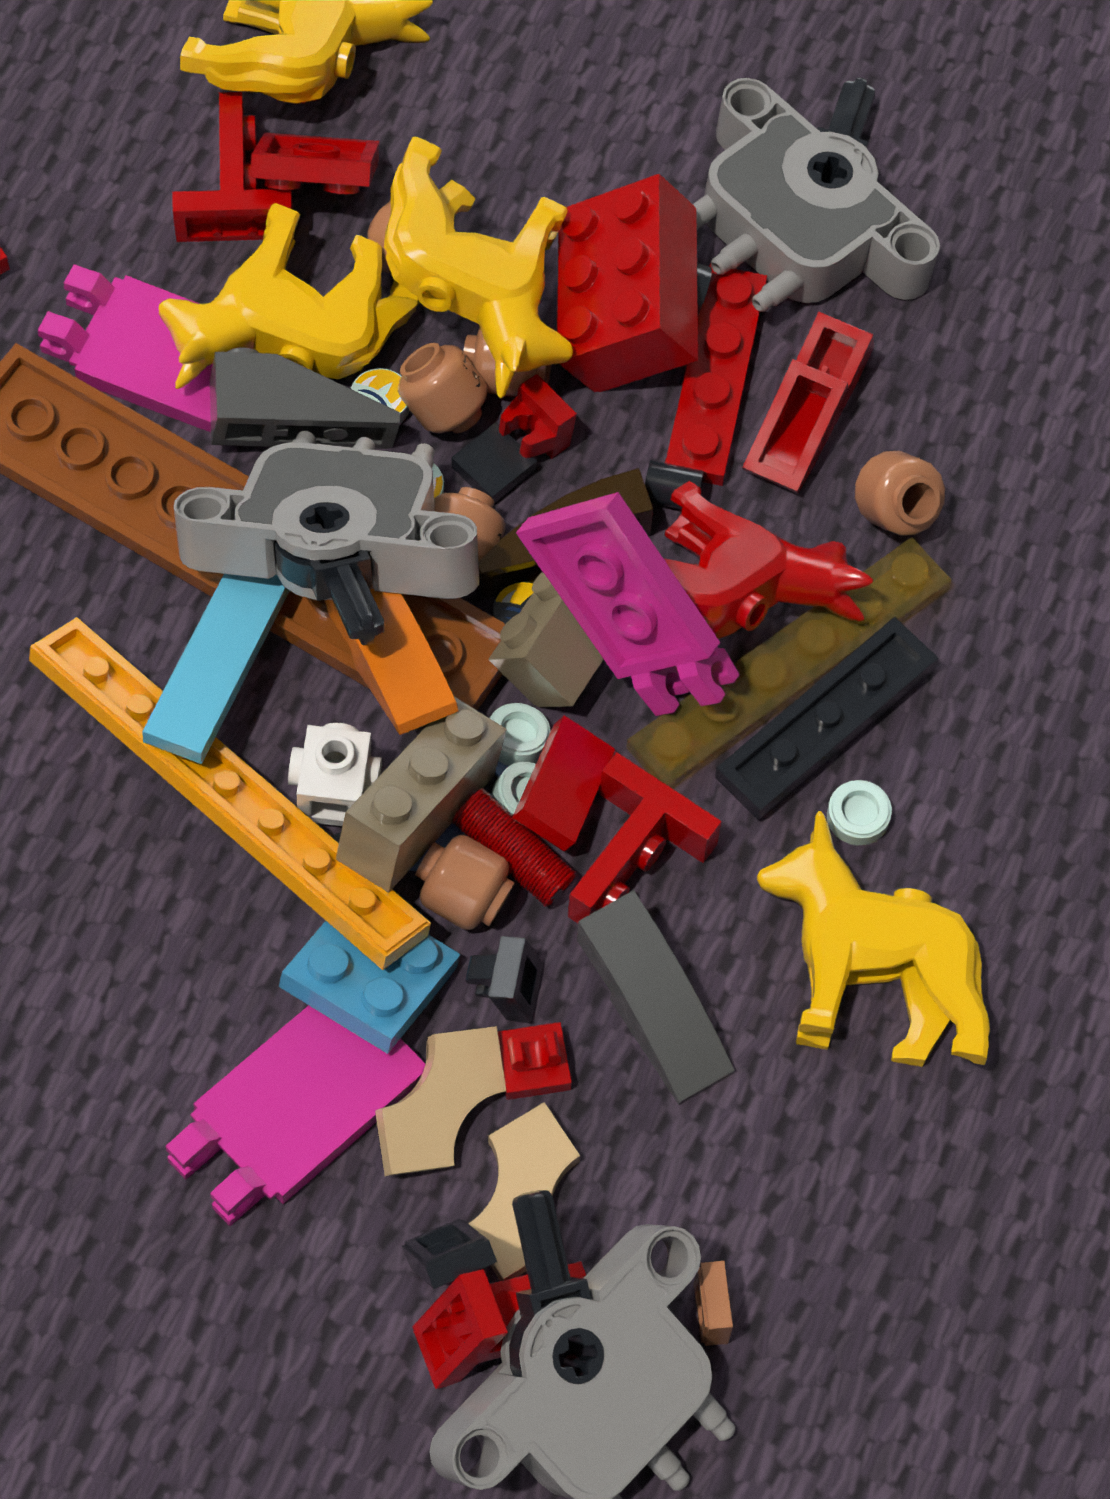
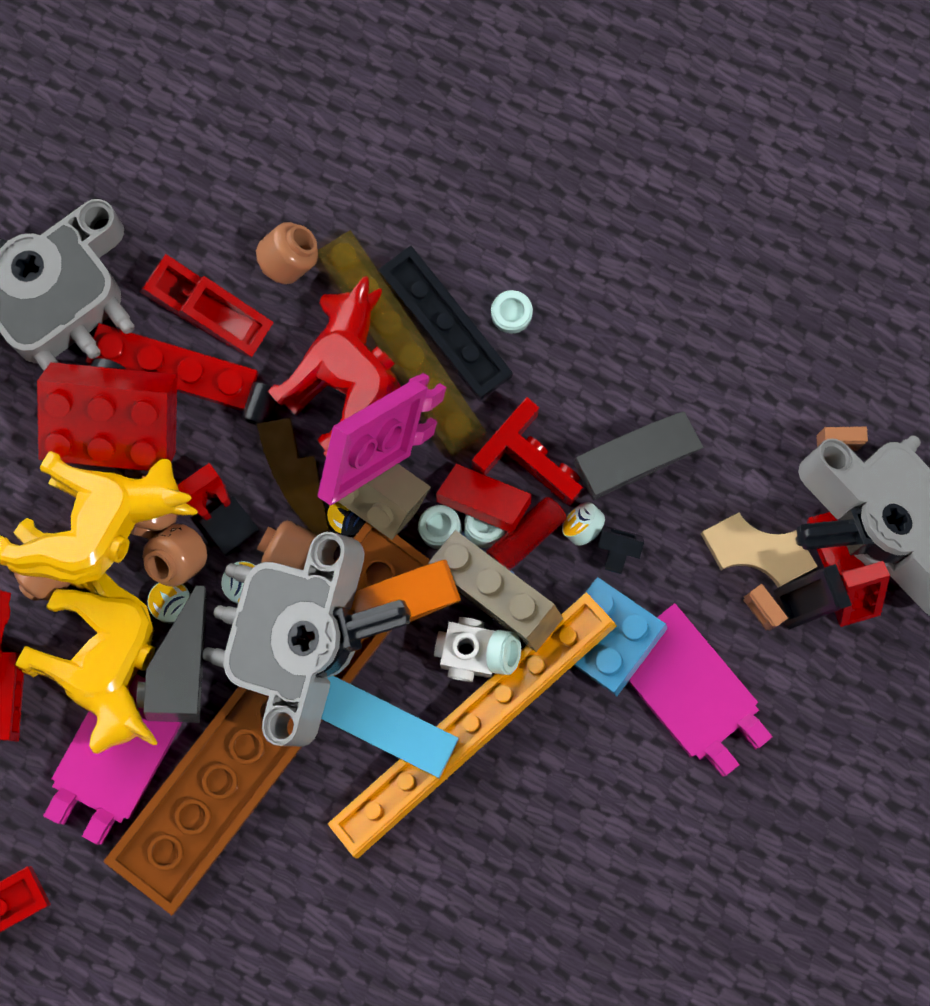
camera: 85 degrees left, 15 degrees up
(324, 804) = (503, 652): none -> light aqua tile
(424, 1125) = (714, 609): tan tile -> none
(431, 1197) = (765, 607): none -> nougat tile
(464, 882) = (551, 567): nougat head -> none
(534, 1061) = (670, 536): red tile -> none
(539, 926) = (583, 524): none -> light aqua tile
(877, 939) = (606, 310): yellow animal -> none

